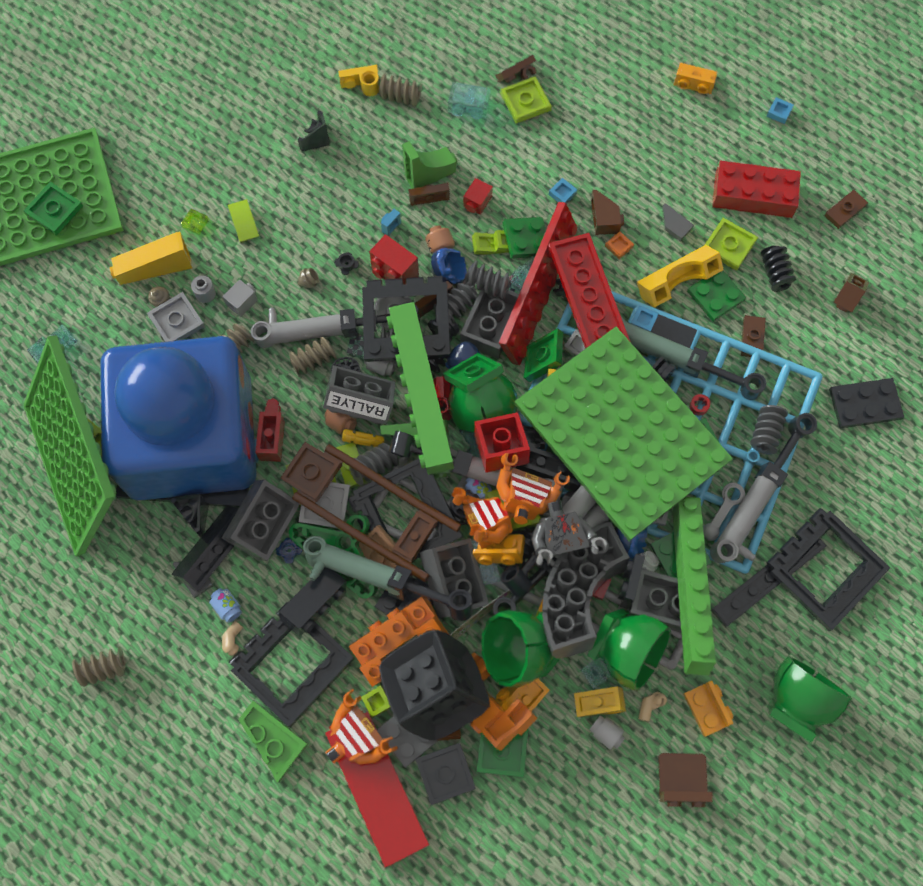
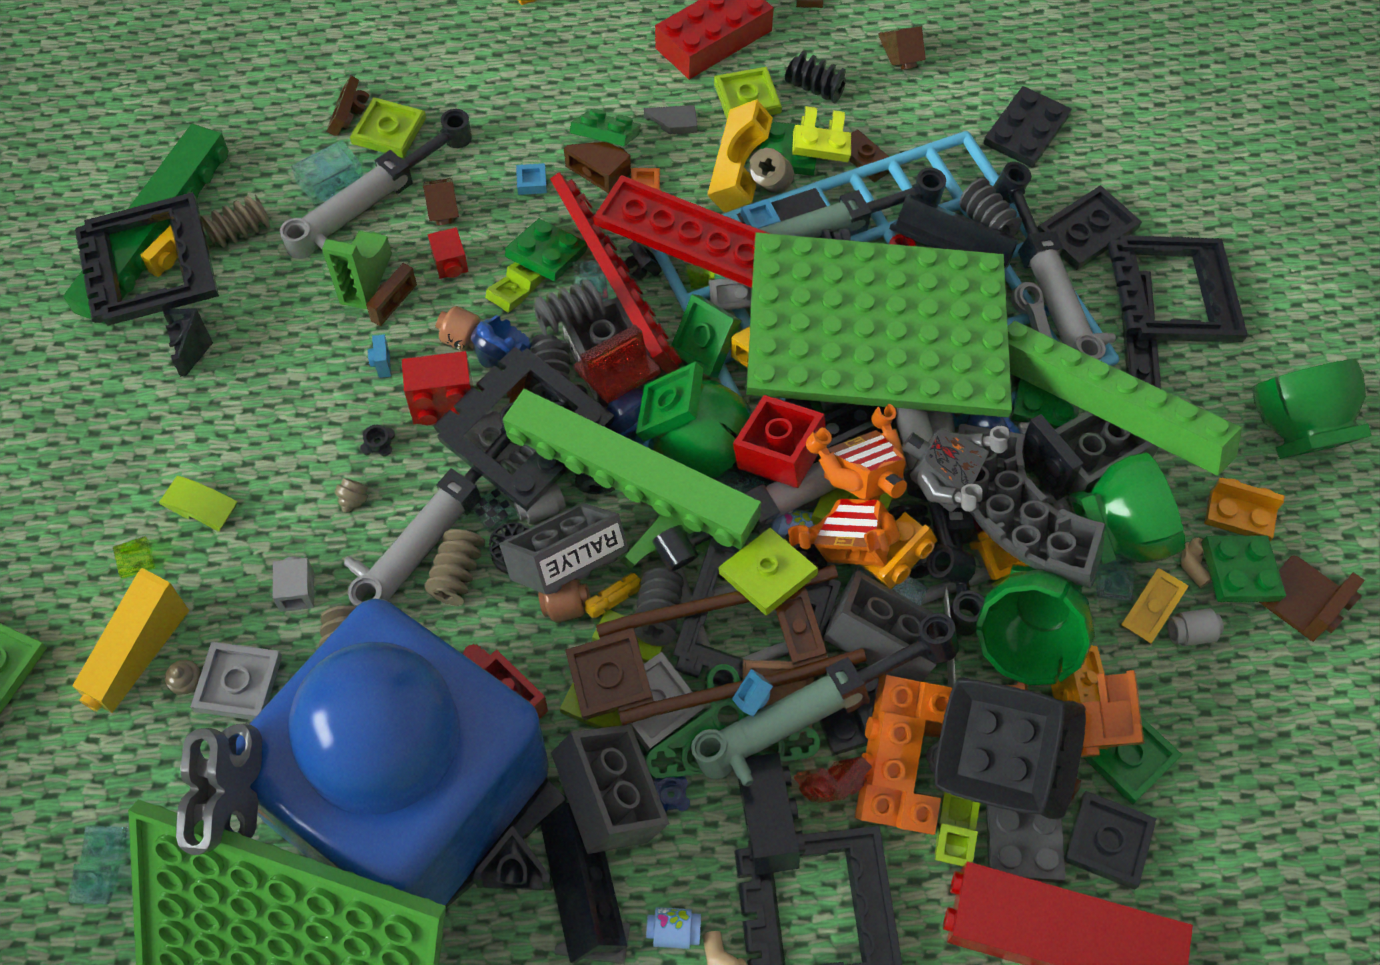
camera: 50 degrees left, 10 degrees down
(85, 360) = (218, 786): none -> dark grey piece
(203, 289) = (236, 614): light grey brick -> none
(313, 62) = (100, 269): none -> black hinge
(356, 543) = (752, 693): none -> dark azure plate
(356, 620) = (836, 783): none -> clear red bracket
(356, 735) = (995, 894): torso -> none
(372, 50) = (182, 172): none -> green brick
(427, 496) = (768, 571): none -> lime plate
(475, 331) = (617, 364): none -> clear red bracket
(480, 127) = (389, 175): none -> light grey piece
(505, 163) = (441, 201): none -> reddish brown slope
(628, 197) = (598, 126): none -> green plate
(665, 732) = (1243, 569): none -> green plate
(682, 299) = (770, 159): none -> dark tan piece
(731, 423) = (949, 230): none -> black panel
(732, 308) = (820, 142): none -> neon yellow plate
(824, 488) = (1089, 226): none -> black plate

